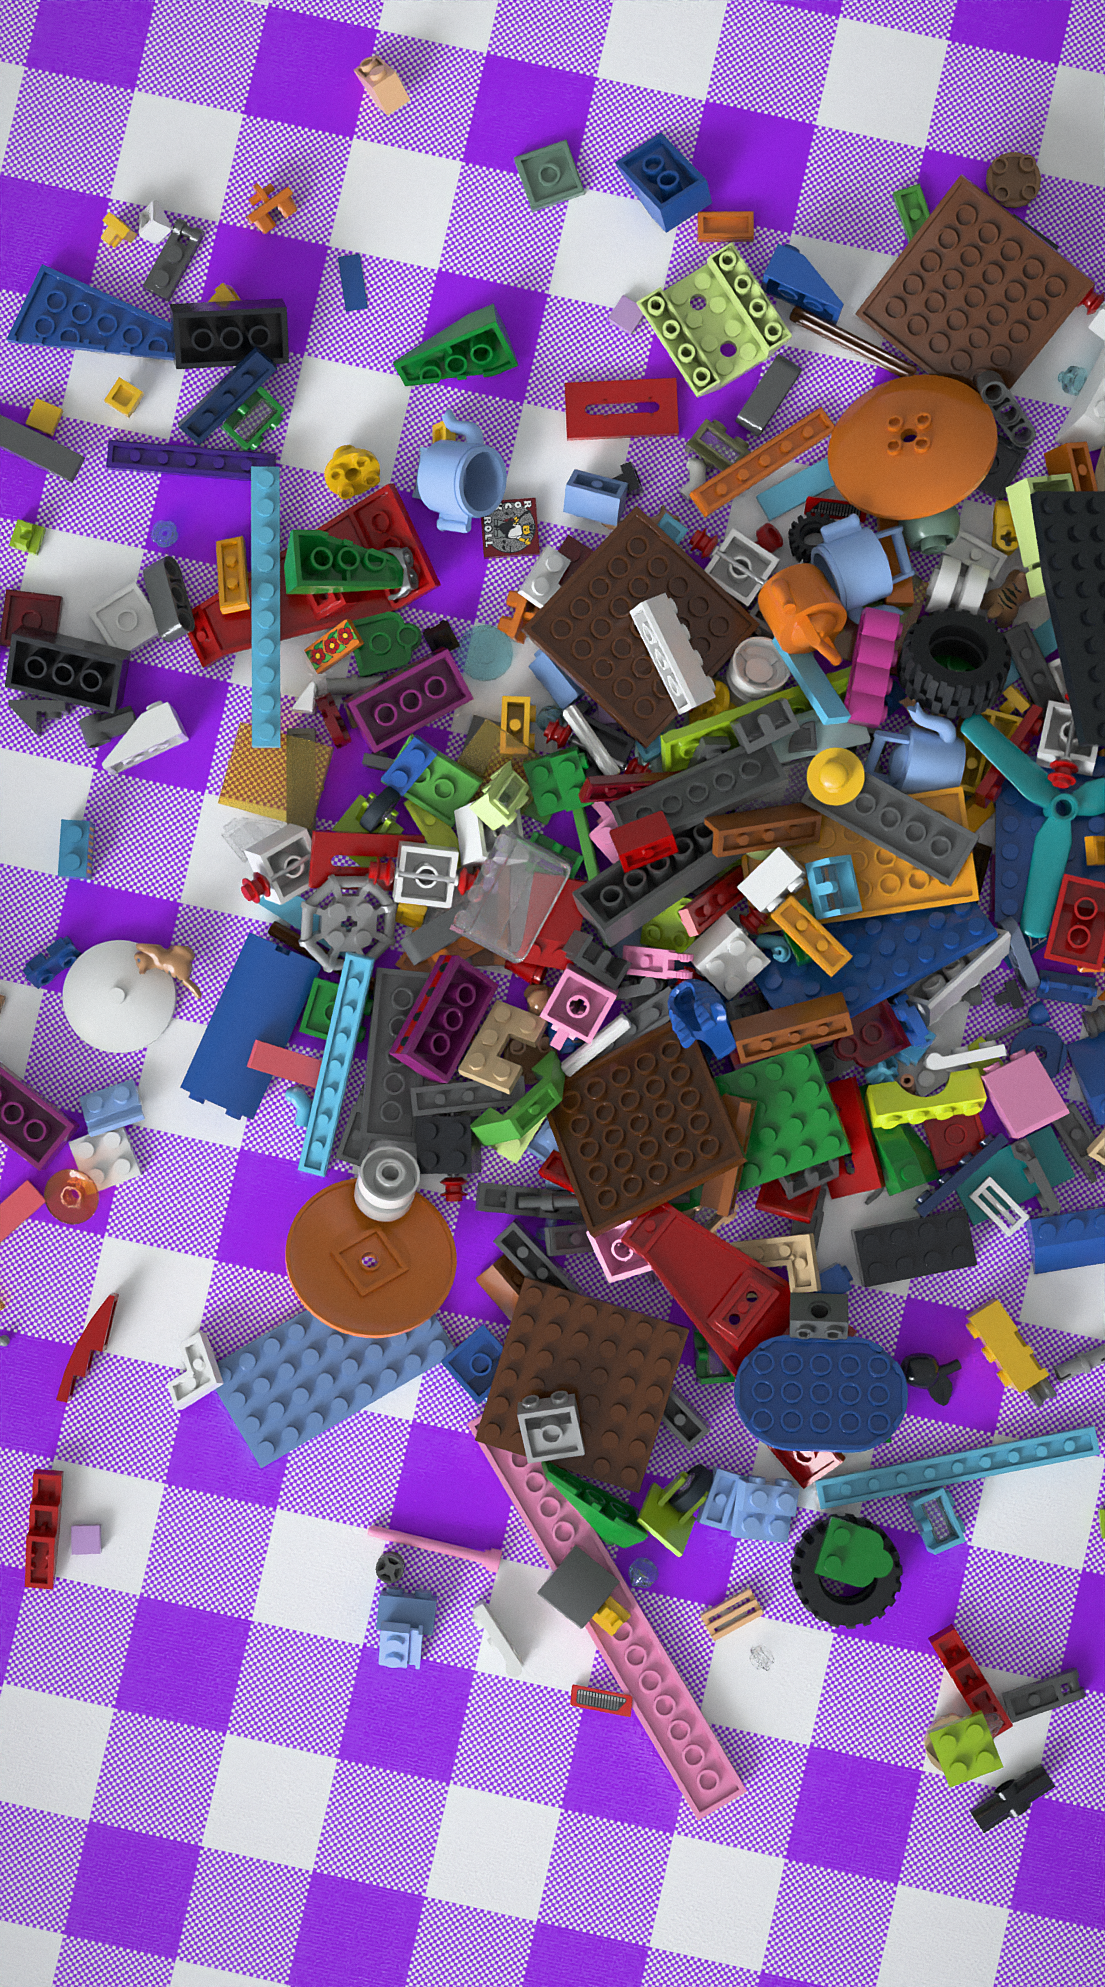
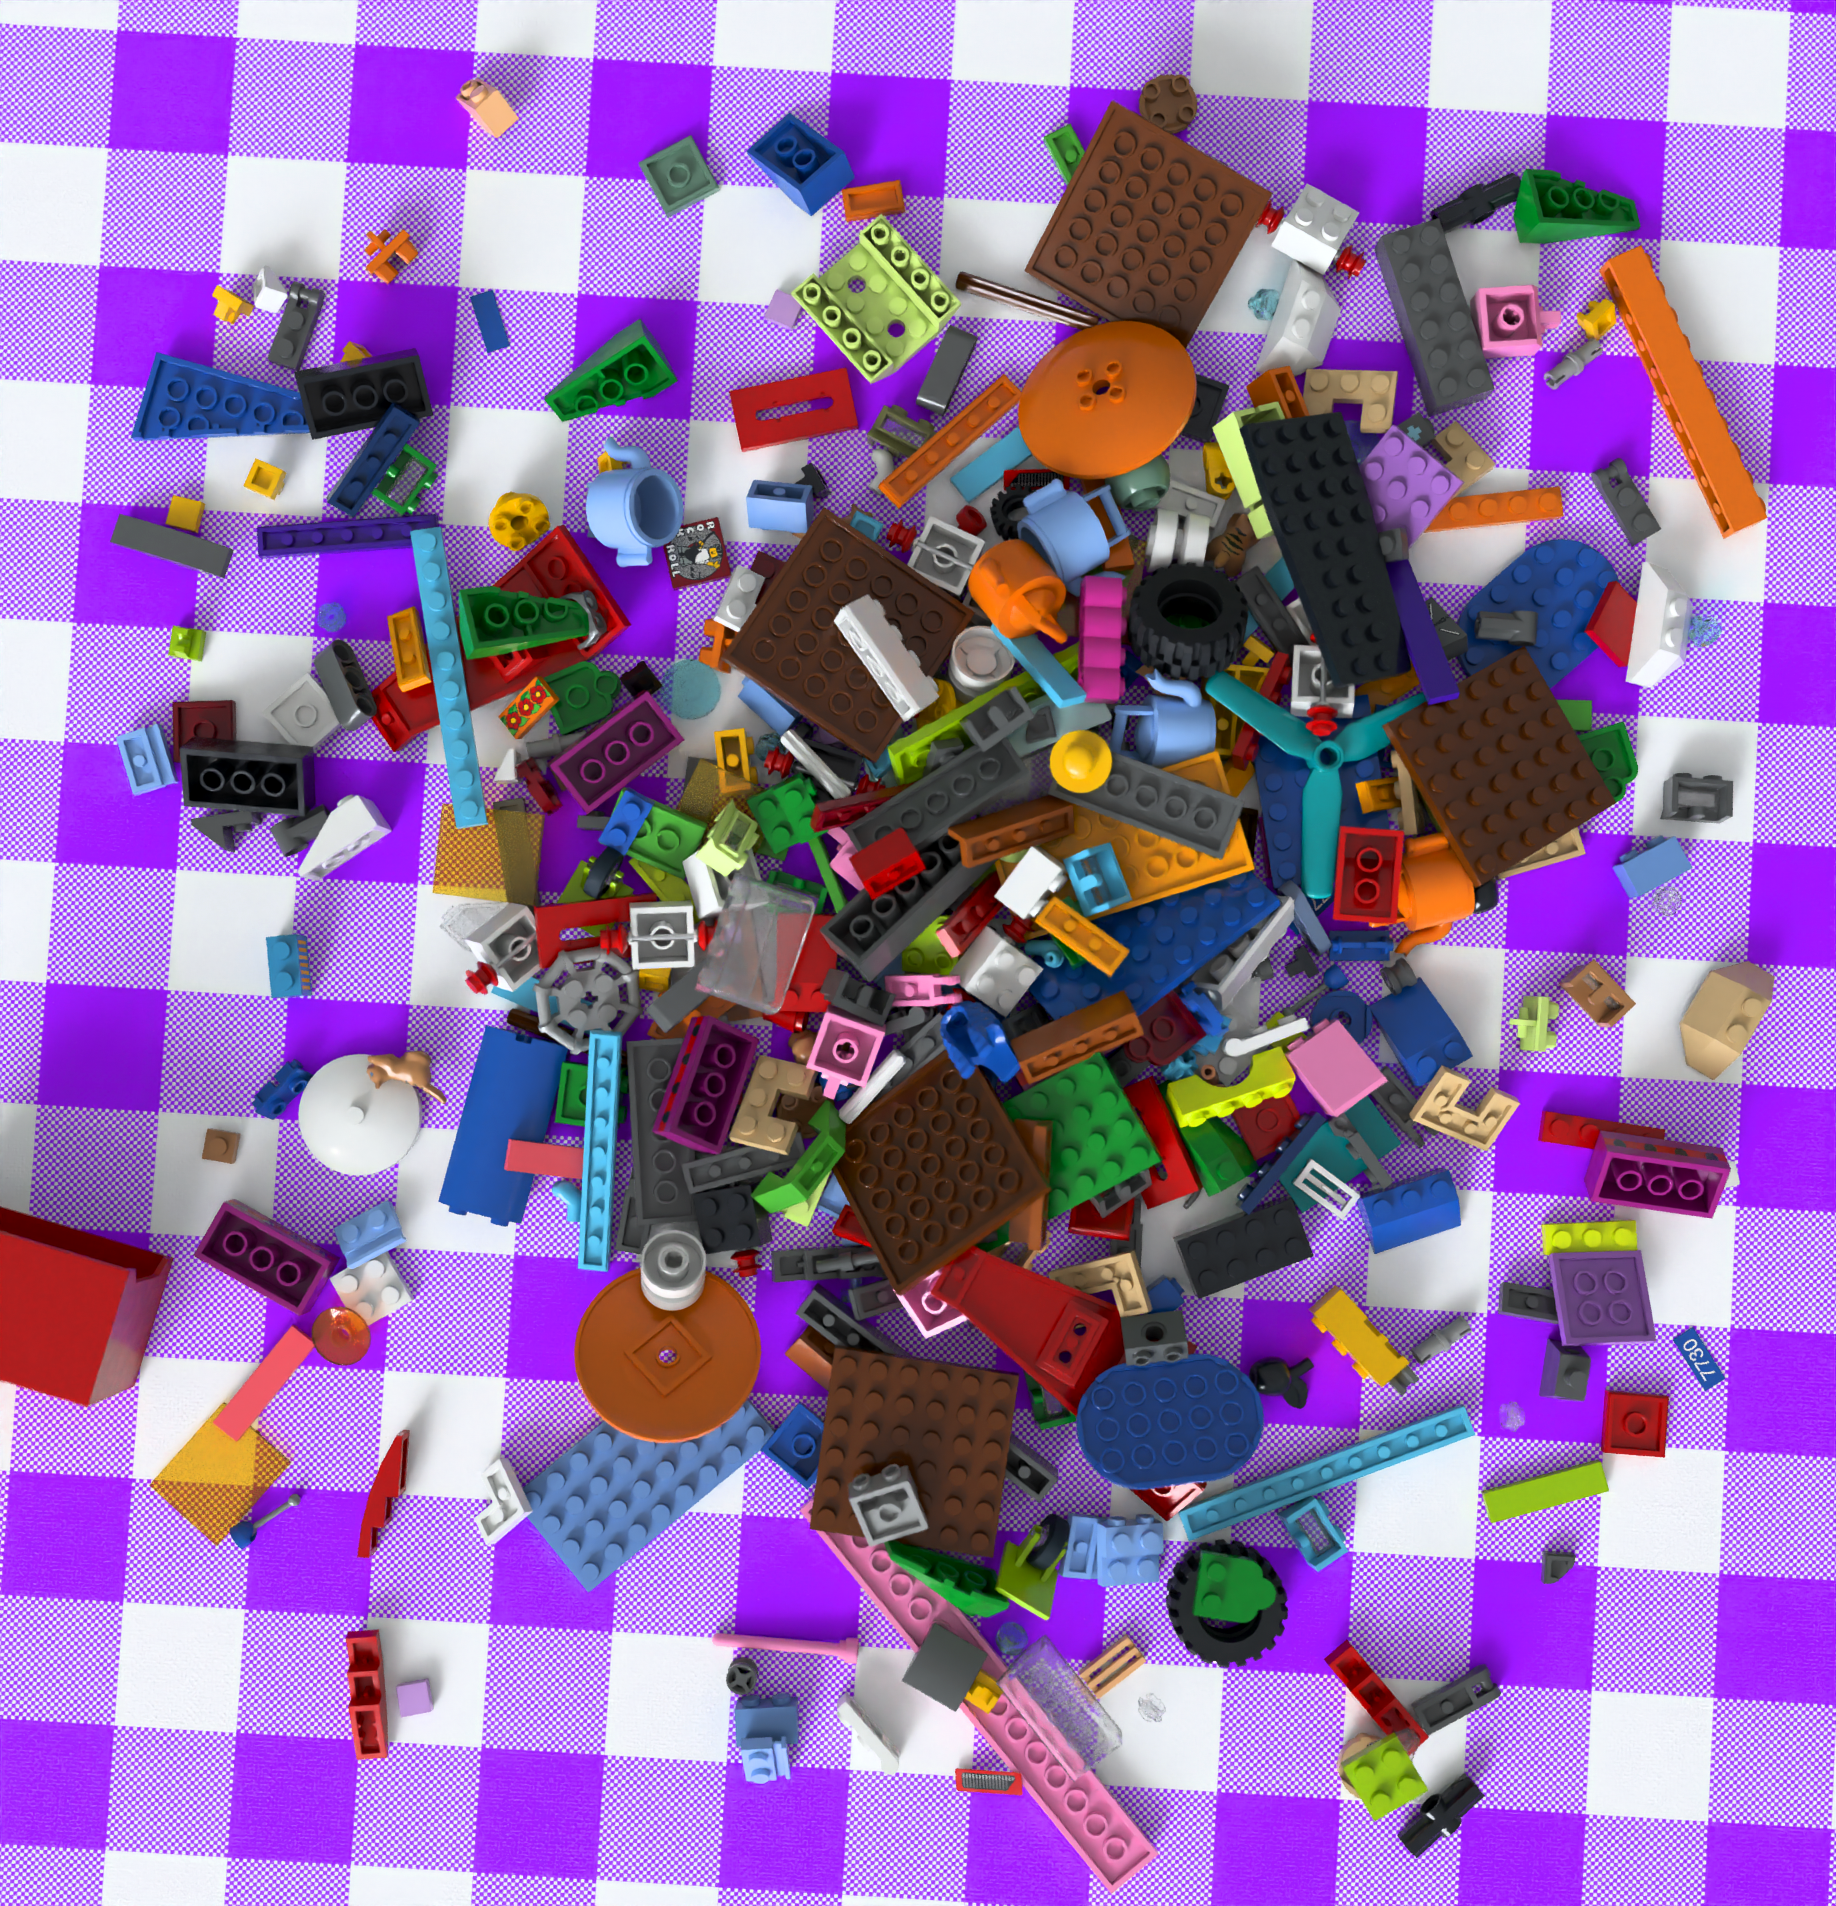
camera: 15 degrees left, 0 degrees up
(677, 1642) = (1060, 1708): none -> clear slope
(798, 283) = (957, 246): blue slope -> none
(1009, 420) = (1208, 353): dark grey beam -> none

